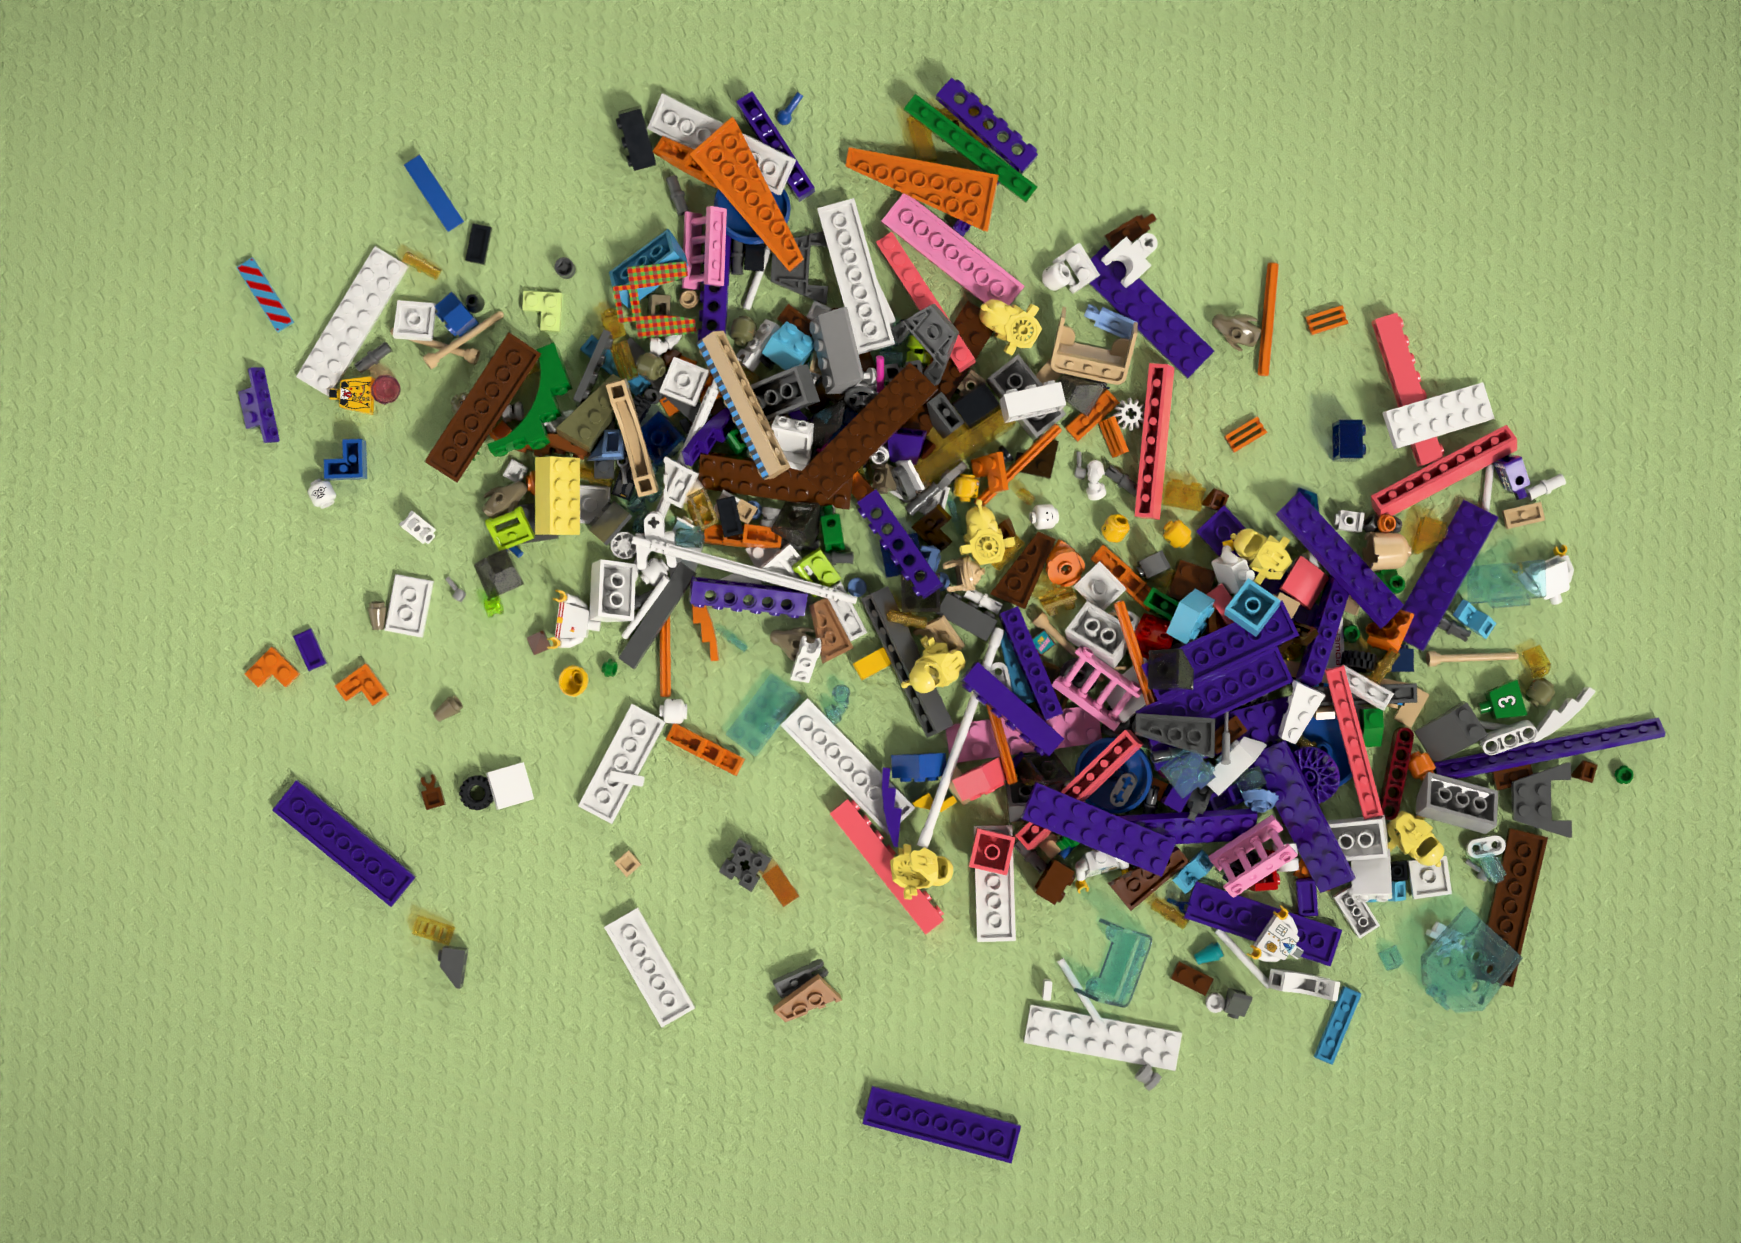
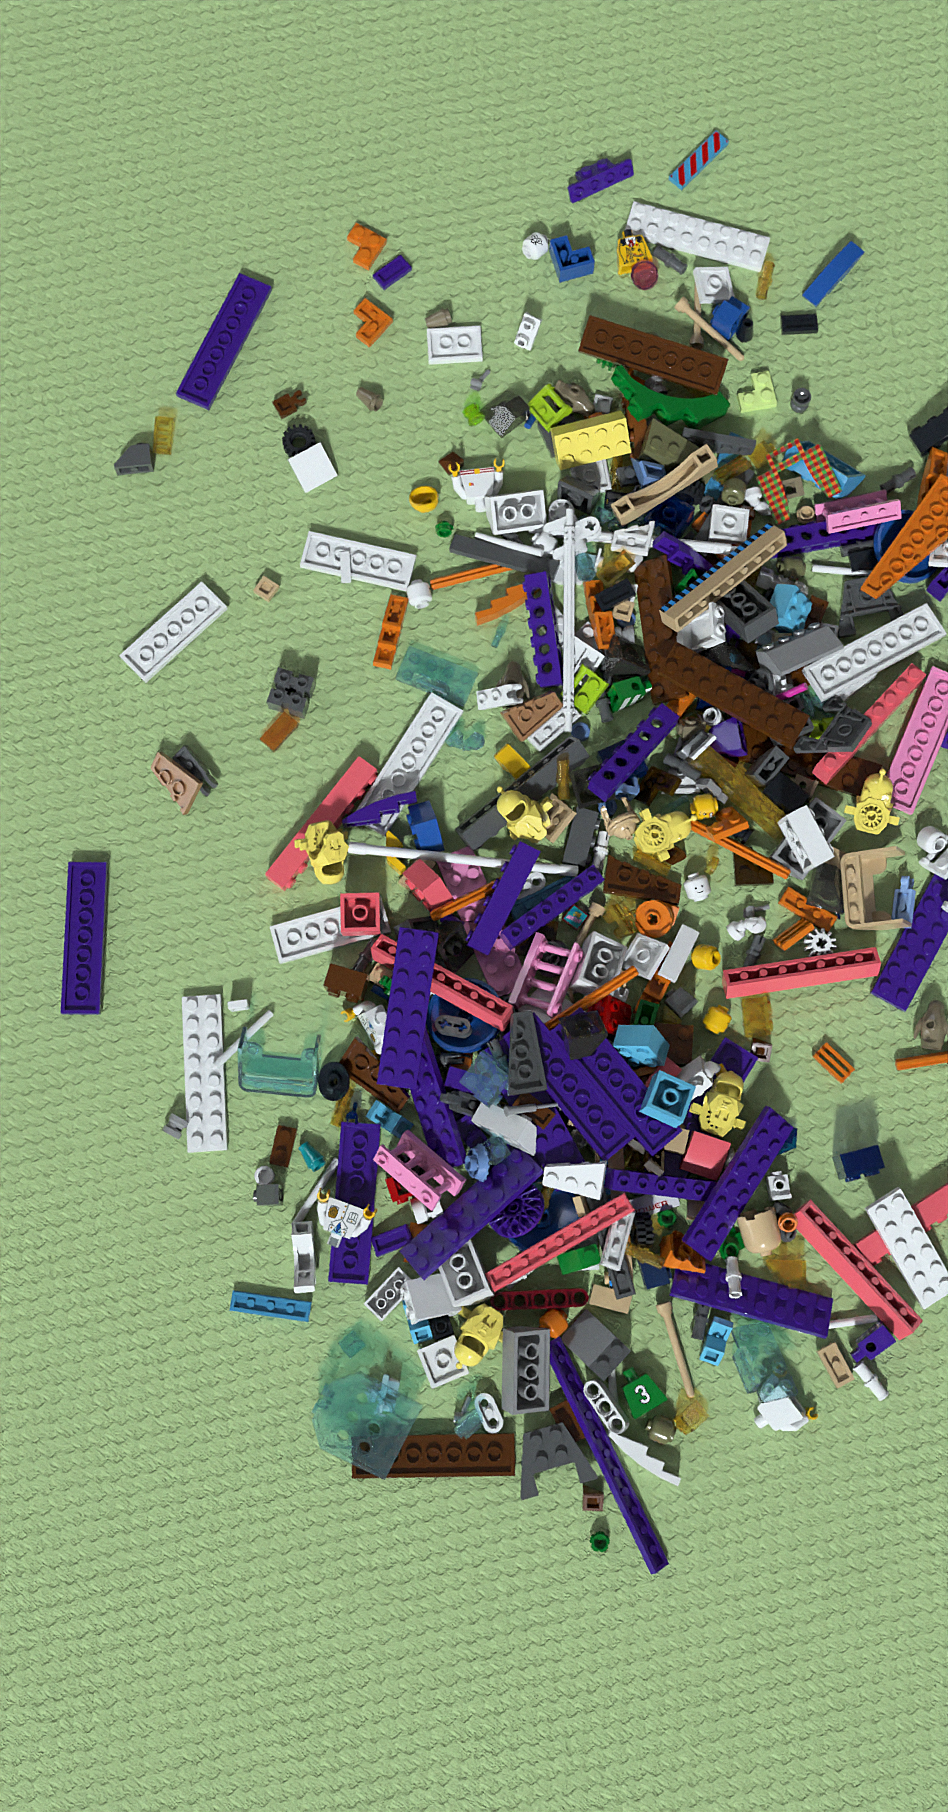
camera: 75 degrees right, 10 degrees down
(1105, 553) = (678, 953): none -> white tile
(1143, 915) = (328, 1080): none -> black dish
(1423, 588) = (733, 1277): none -> white pin

